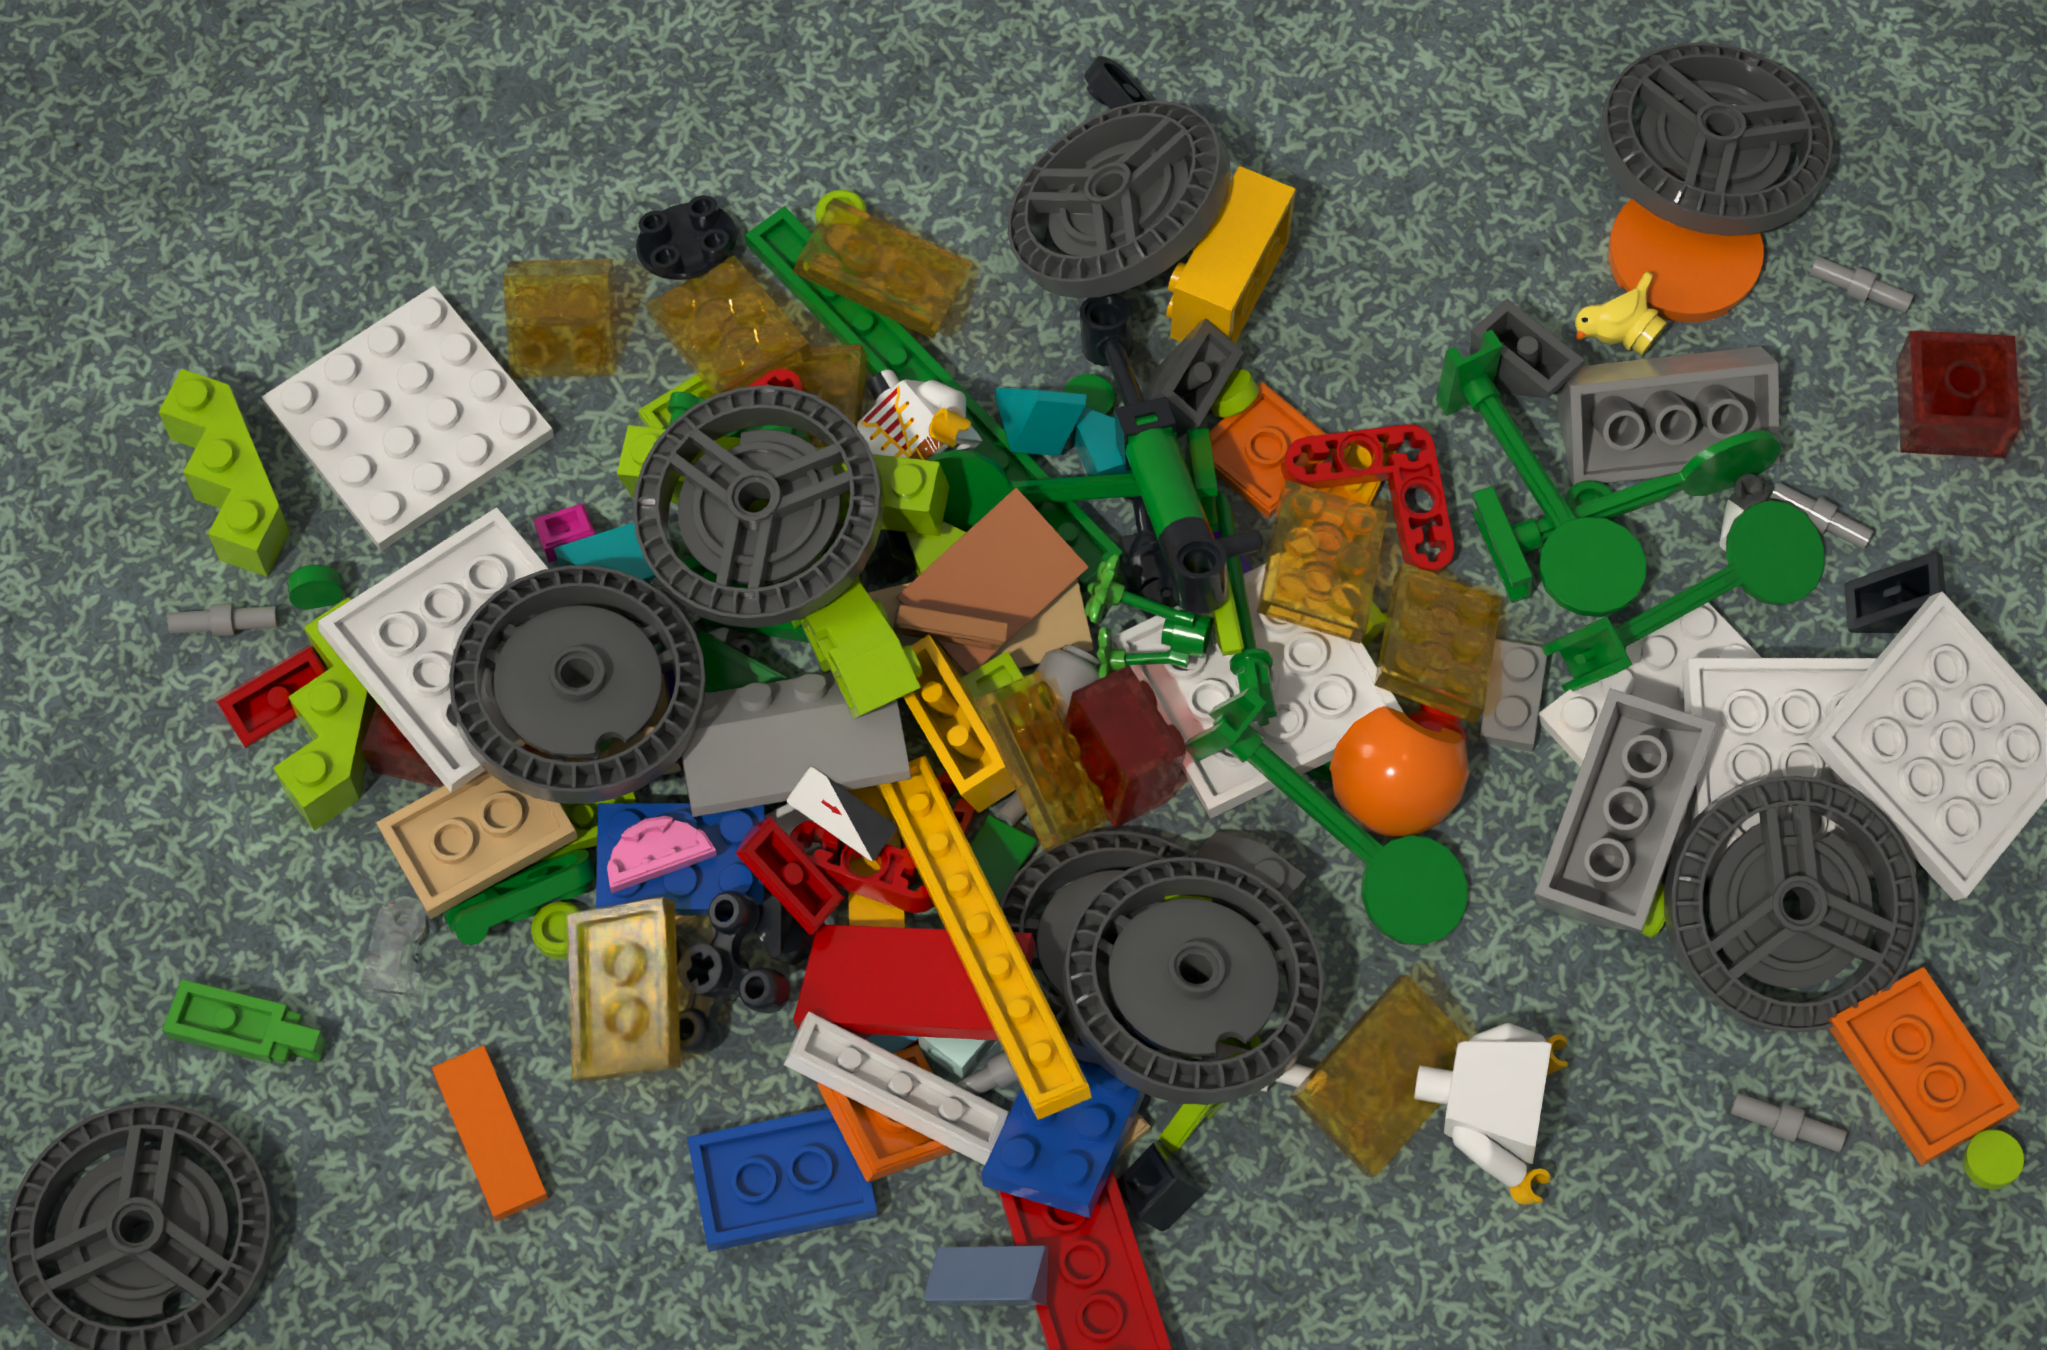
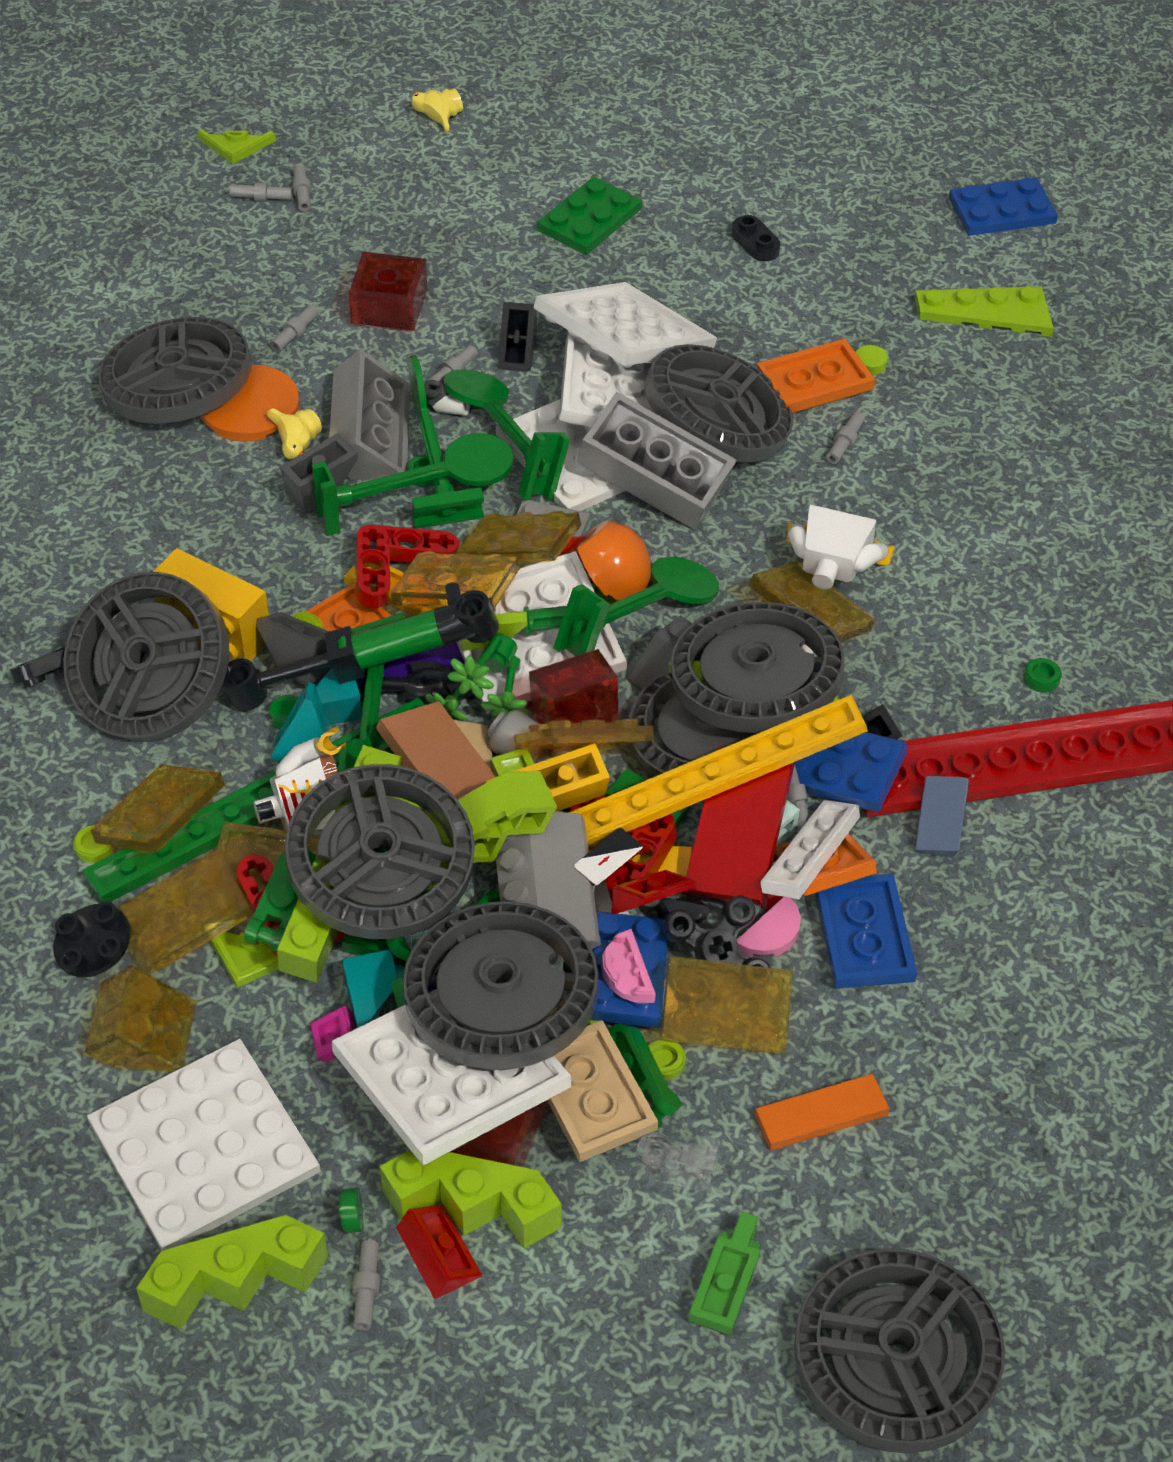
camera: 85 degrees left, 15 degrees down
(763, 1052) = (773, 931): none -> bright pink tile
(950, 627) = (481, 764): medium nougat tile -> none

